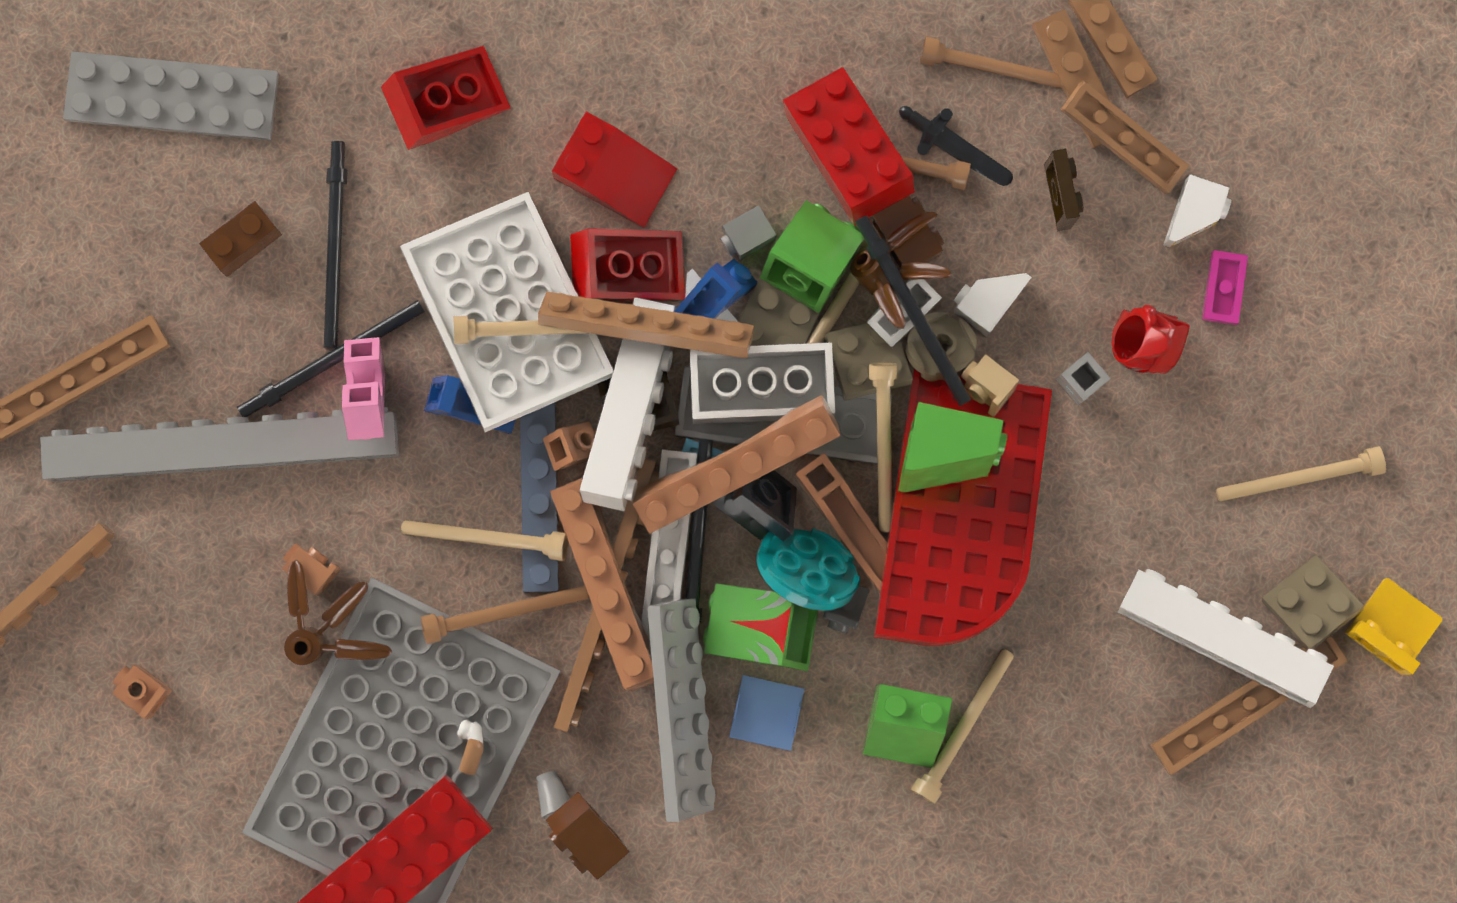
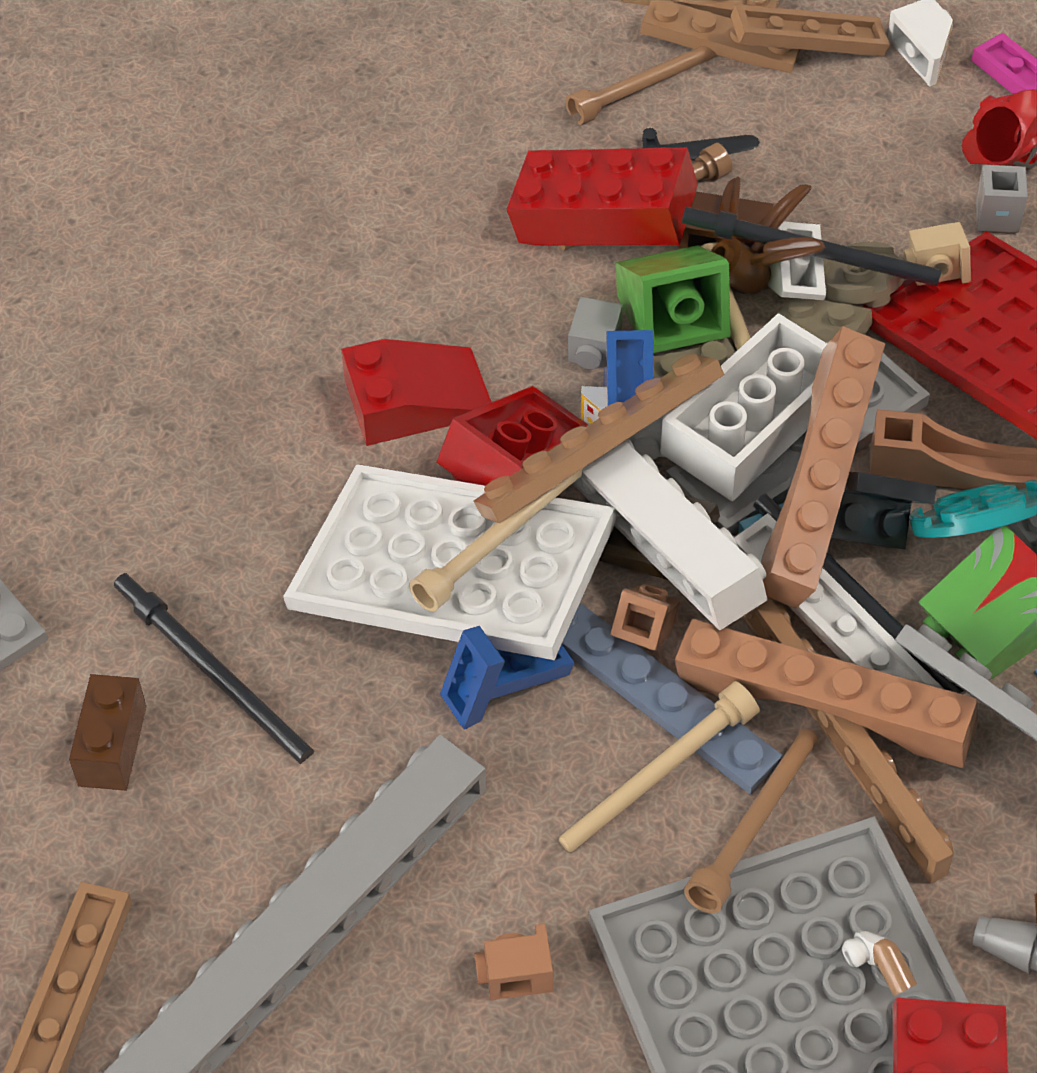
camera: 40 degrees left, 30 degrees down
(272, 394) = (292, 844): black bar -> none
(332, 617) = (588, 1049): reddish brown plant -> none
(365, 389) = (403, 733): bright pink arch -> none
(444, 96) = (185, 462): red slope -> none
(883, 377) = (850, 314): tan piece -> none
(949, 447) = (973, 300): bright green slope -> none
(988, 300) = (855, 212): white slope -> none
(1065, 201) = (811, 92): dark brown plate -> none

